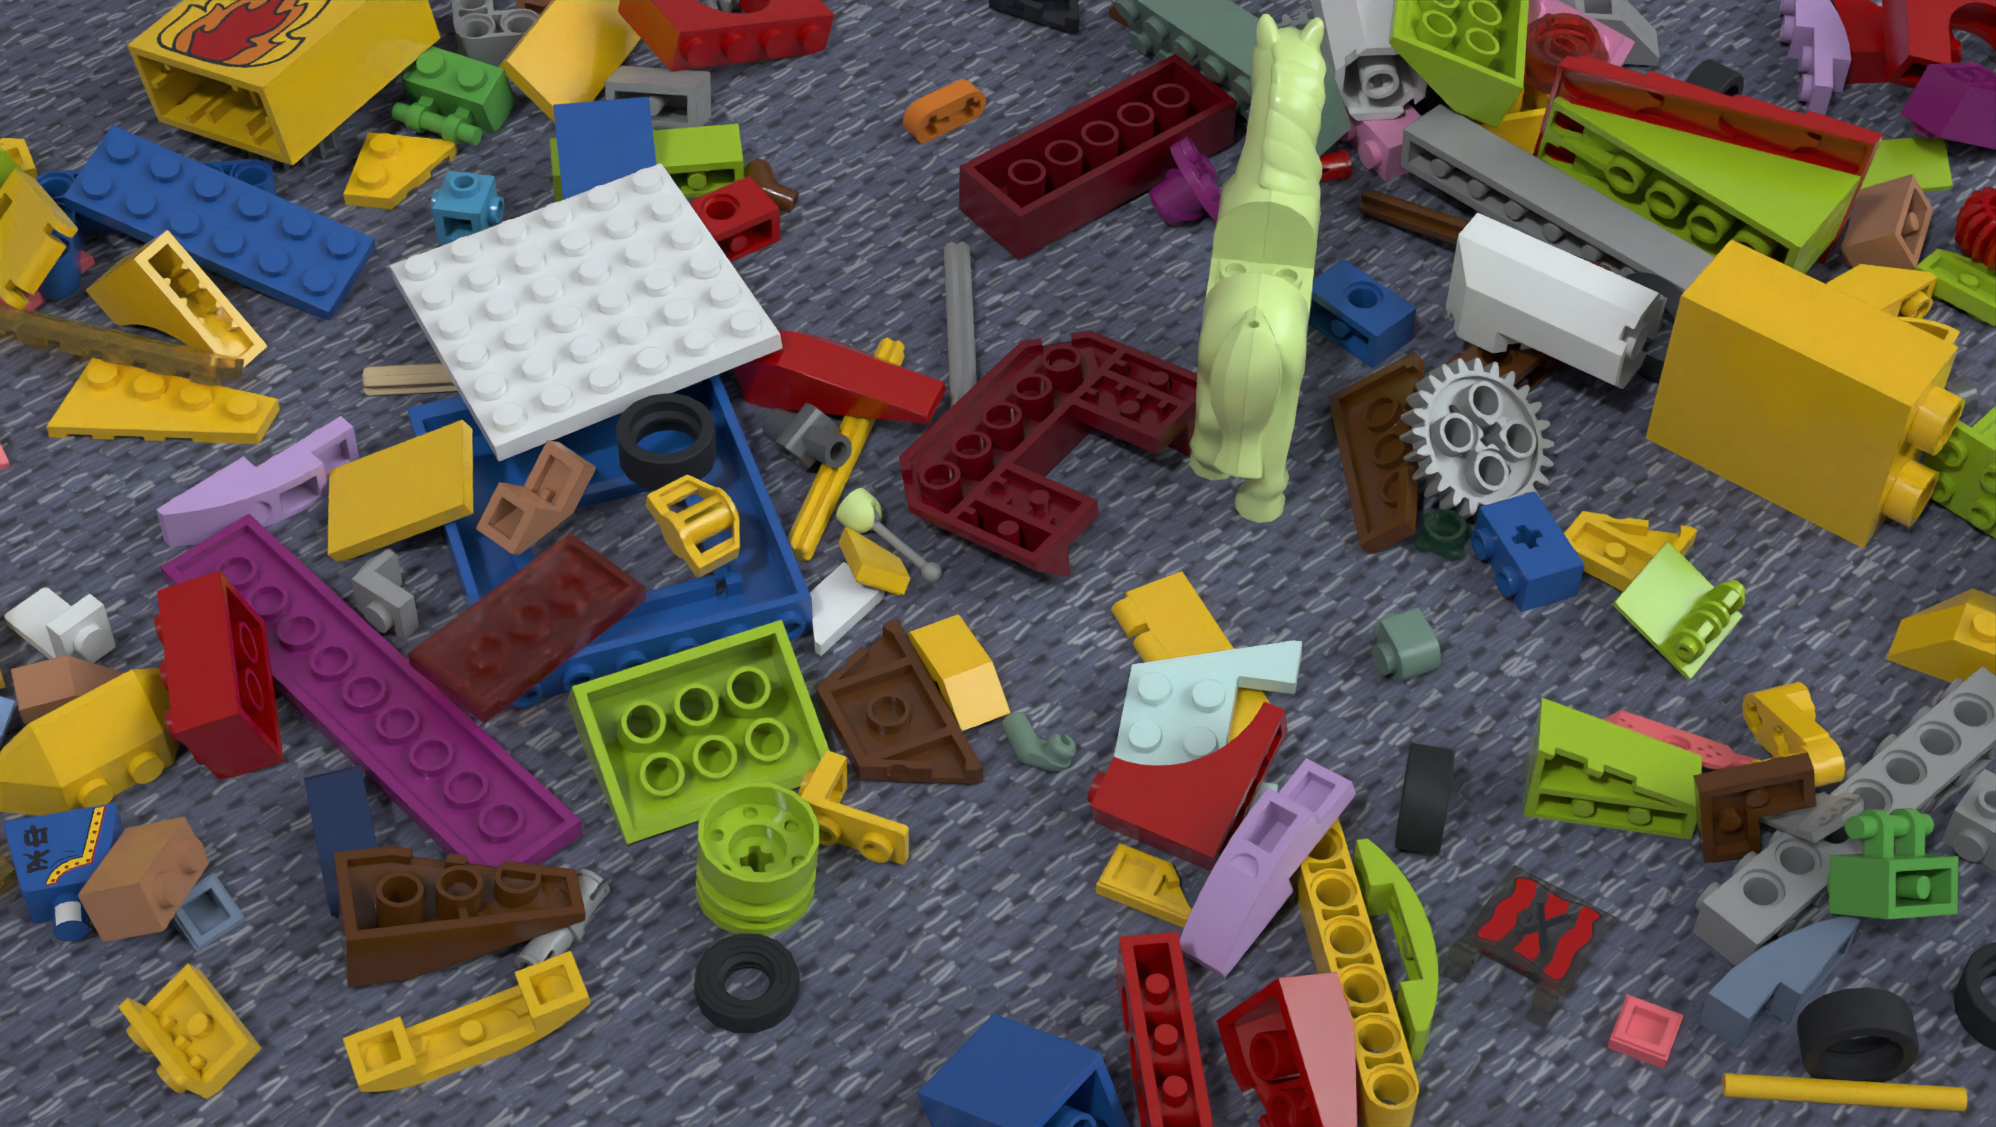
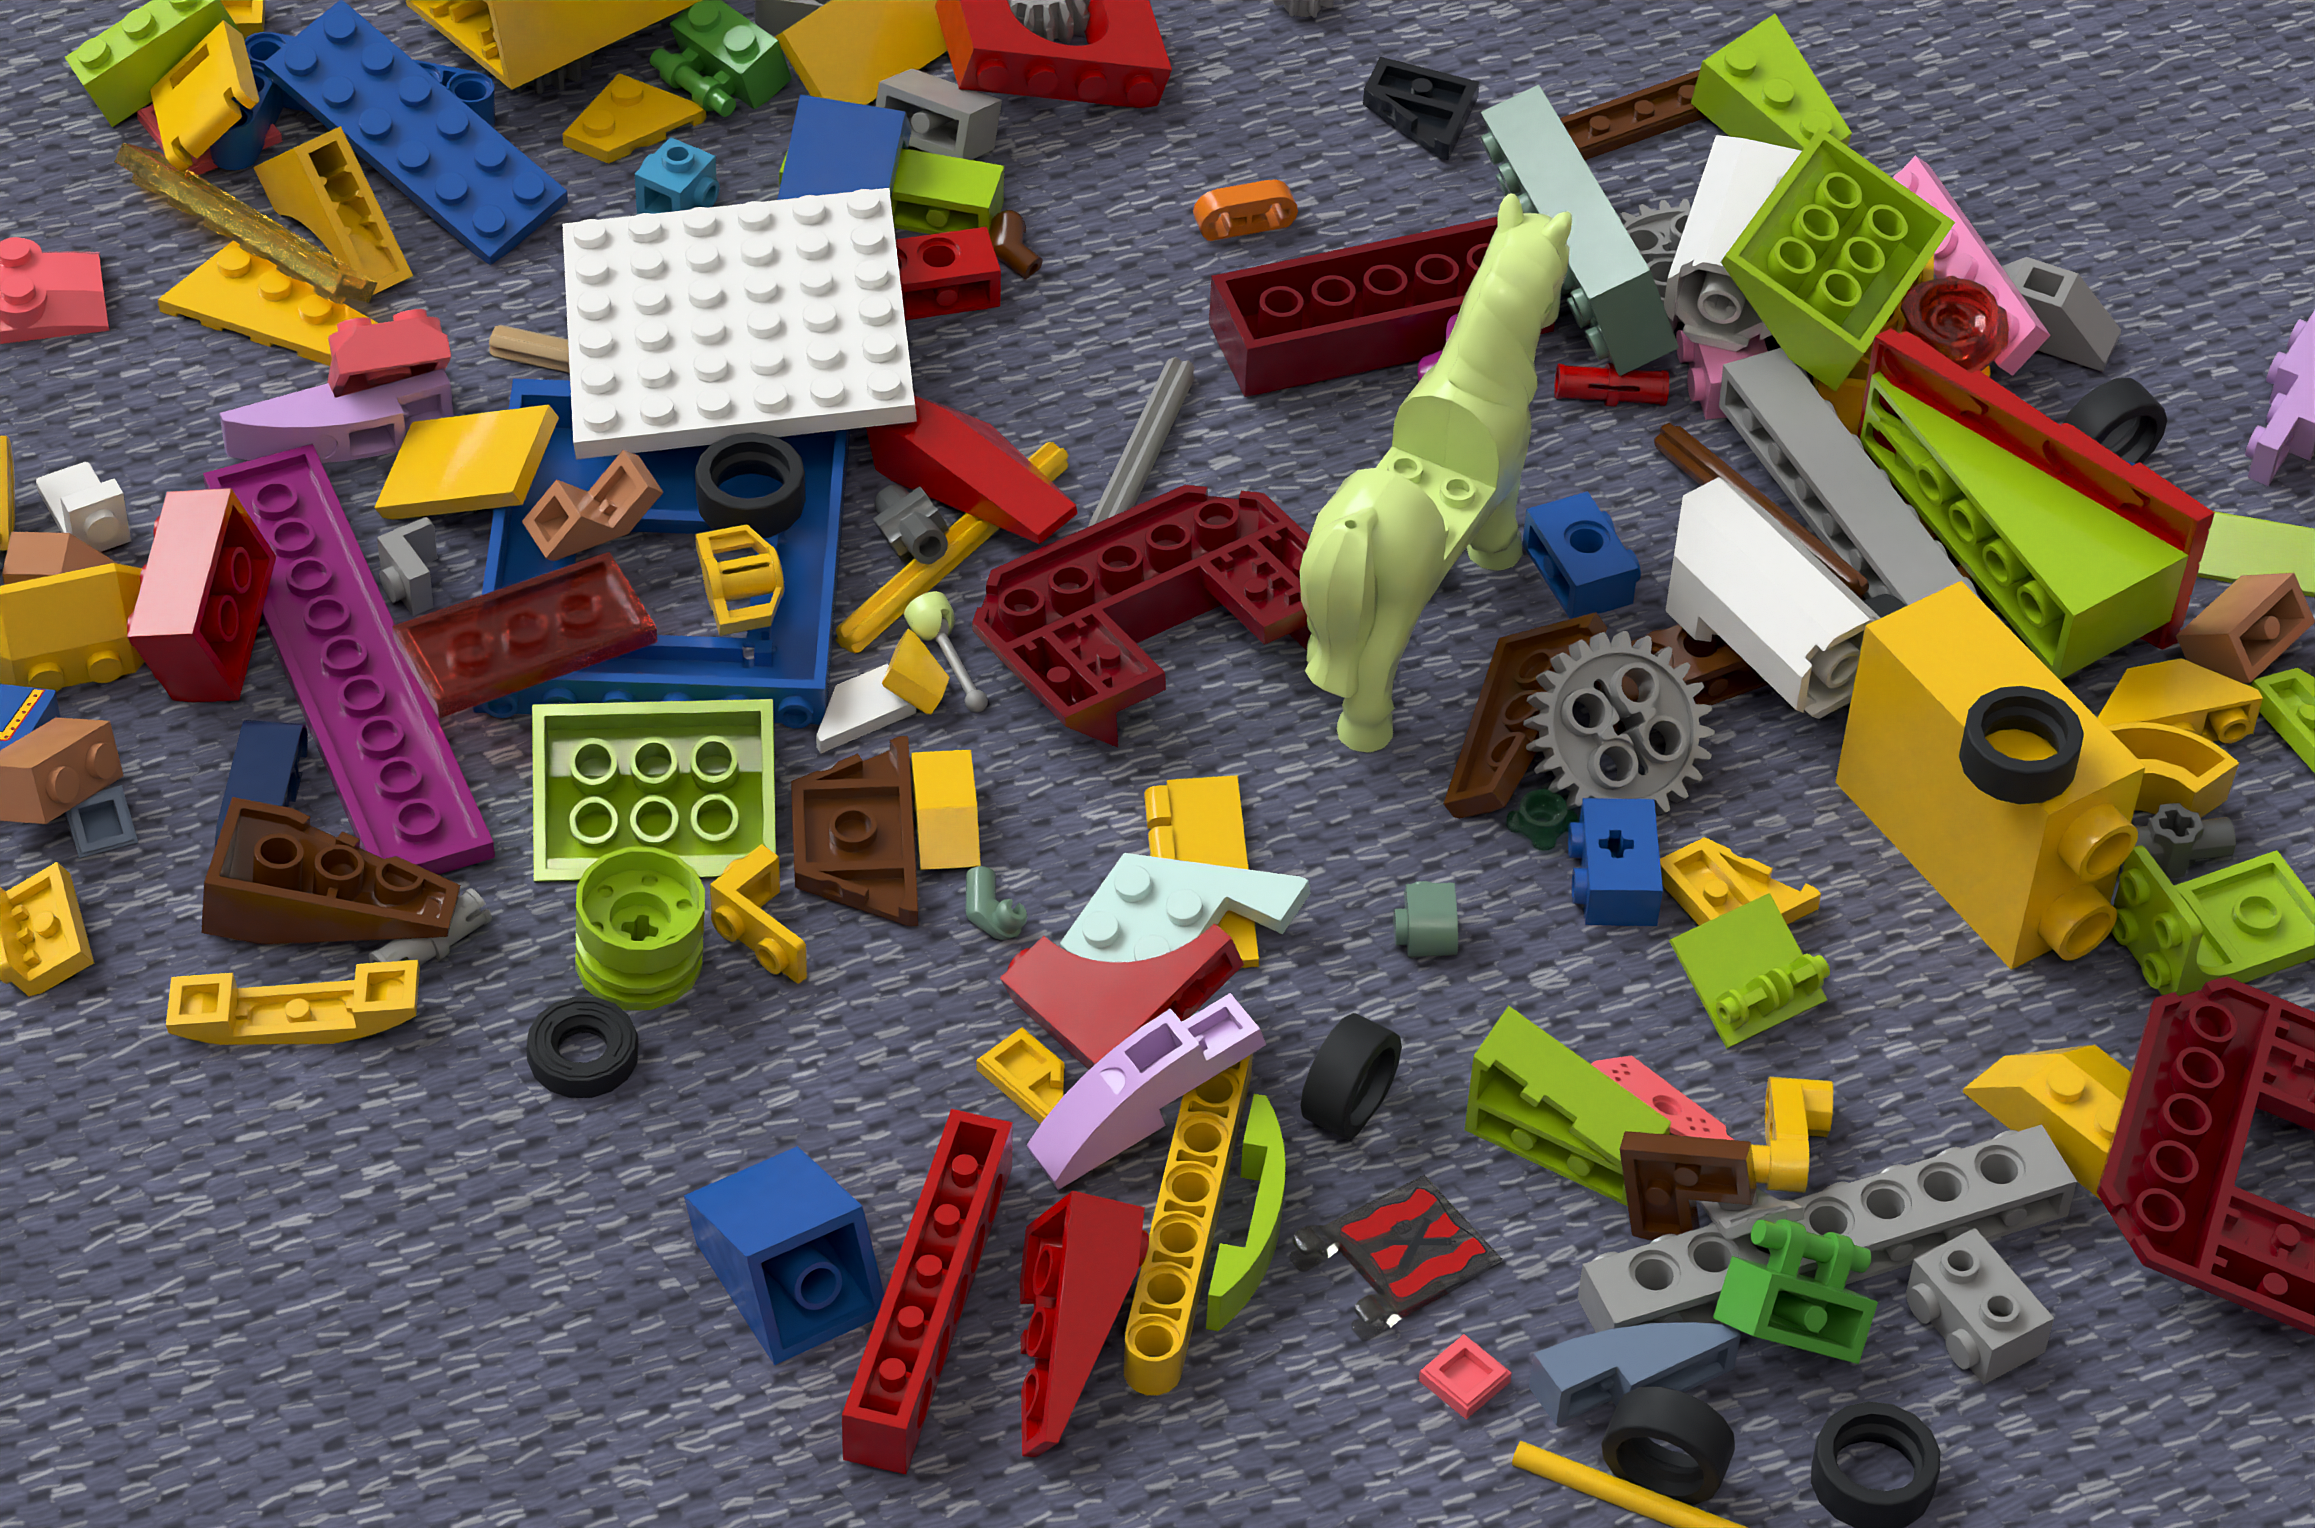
camera: 20 degrees right, 0 degrees up
(288, 415) = (385, 352): none -> coral slope
(1861, 382) = (2014, 778): none -> black tyre

